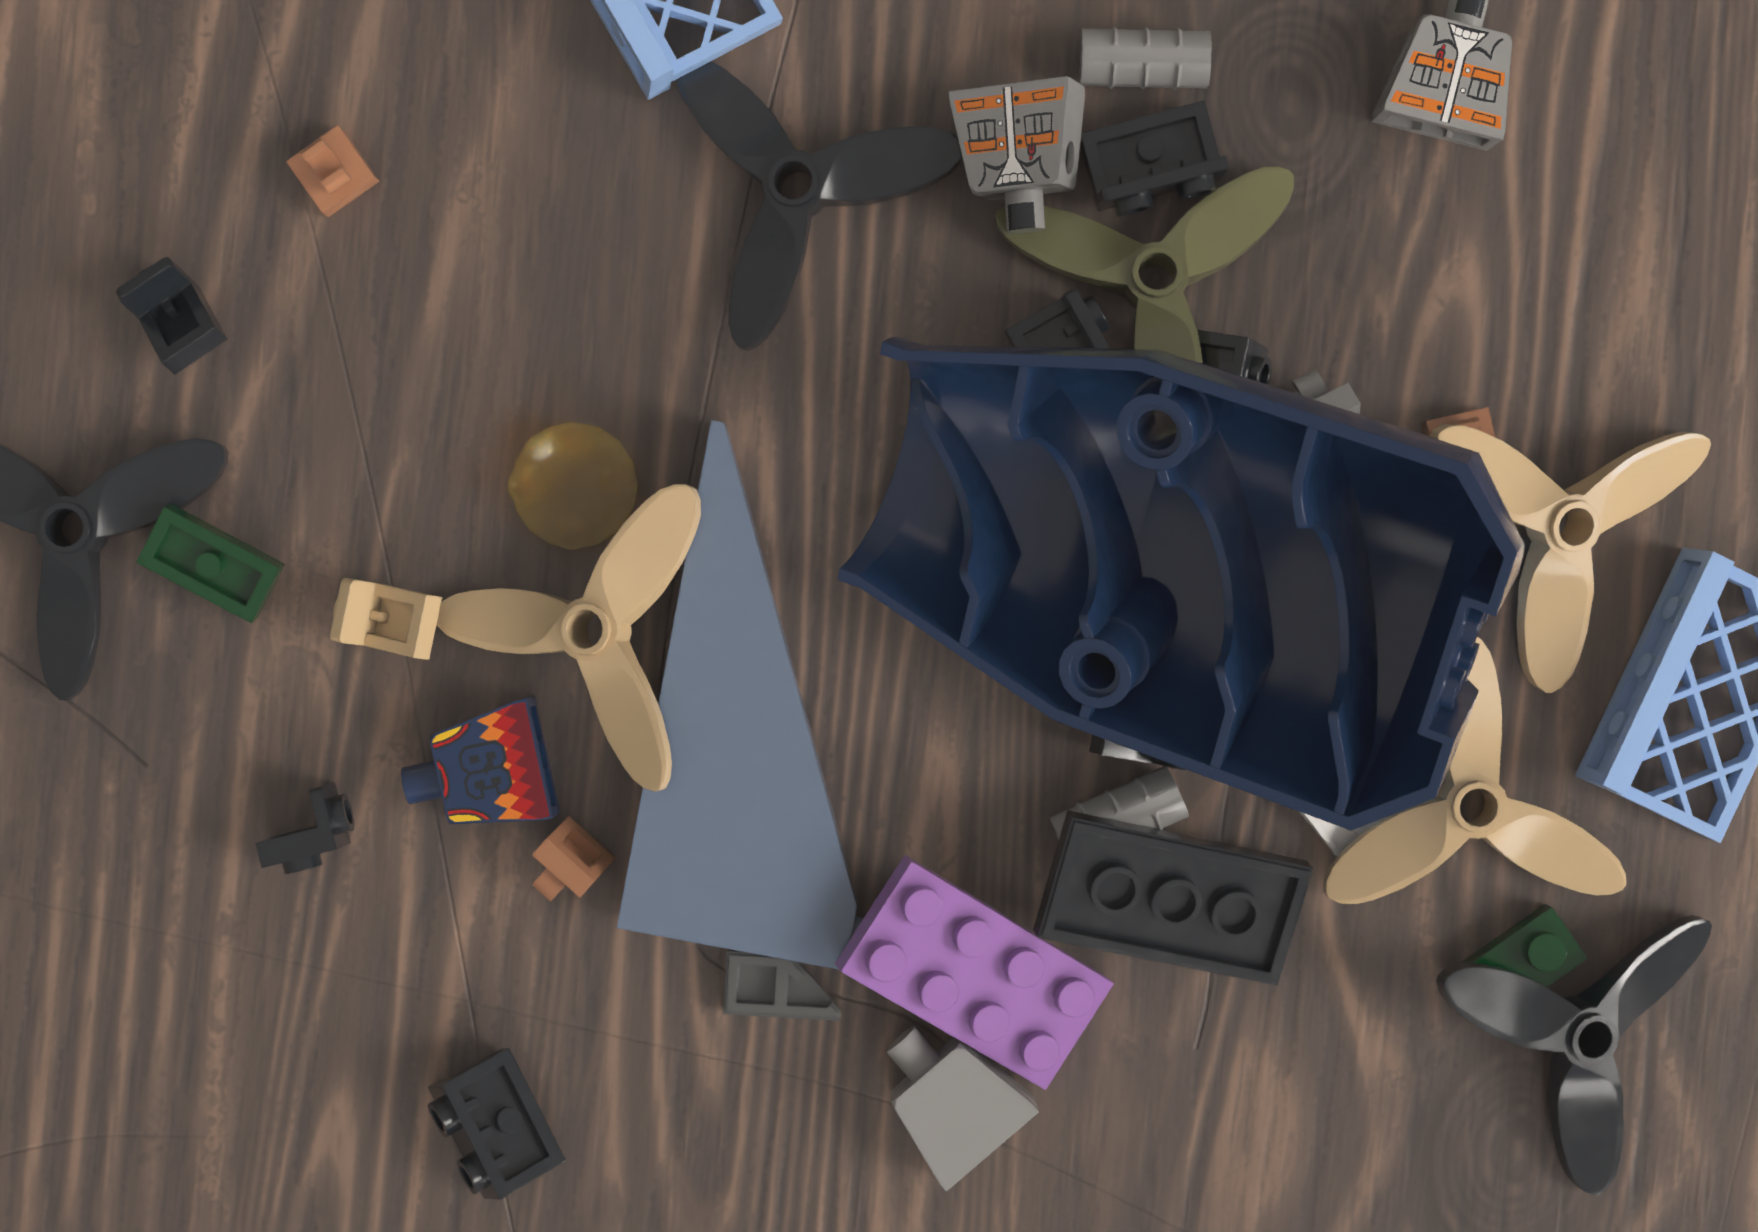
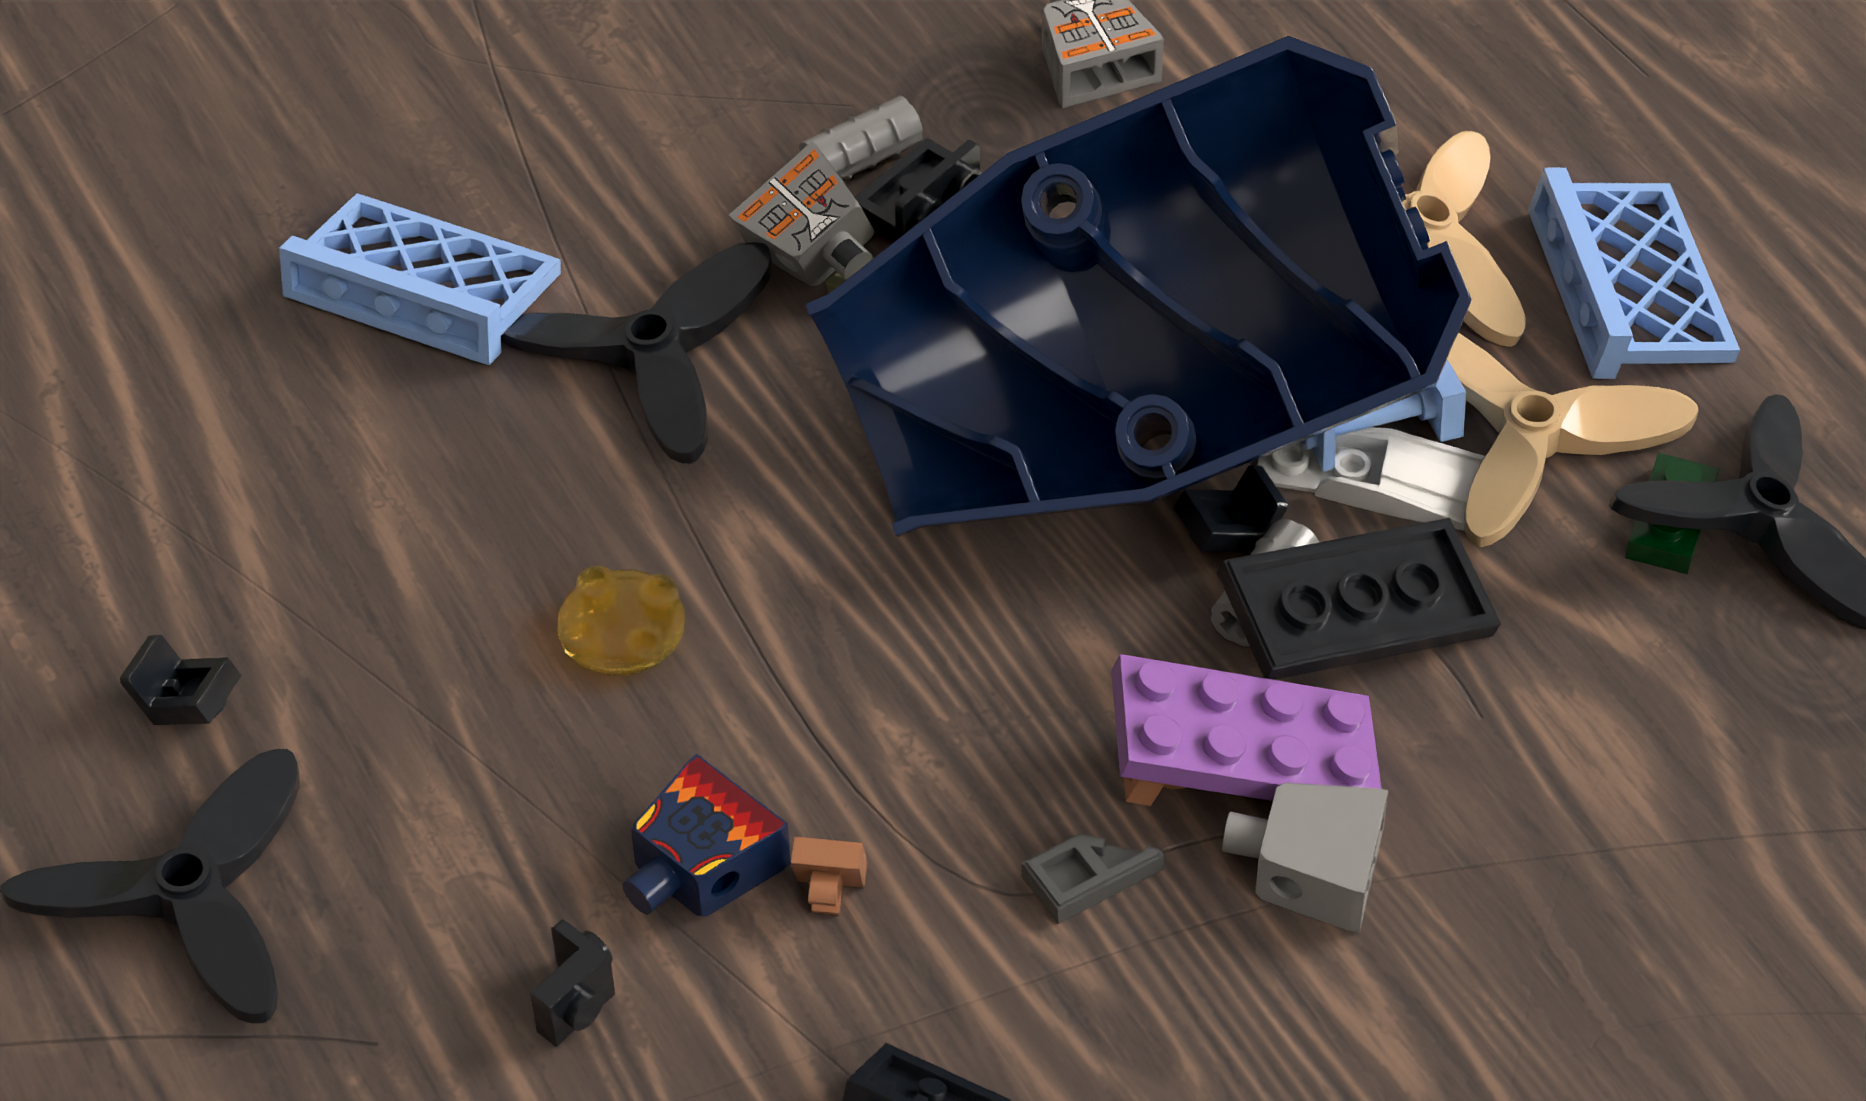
camera: 30 degrees left, 40 degrees down
(210, 563) = (335, 837): dark green plate -> none
(332, 171) = (253, 535): nougat tile -> none
(385, 618) = (529, 789): tan bracket -> none
(620, 590) = (758, 694): tan piece -> none
(745, 830) = (932, 742): sand blue slope -> none

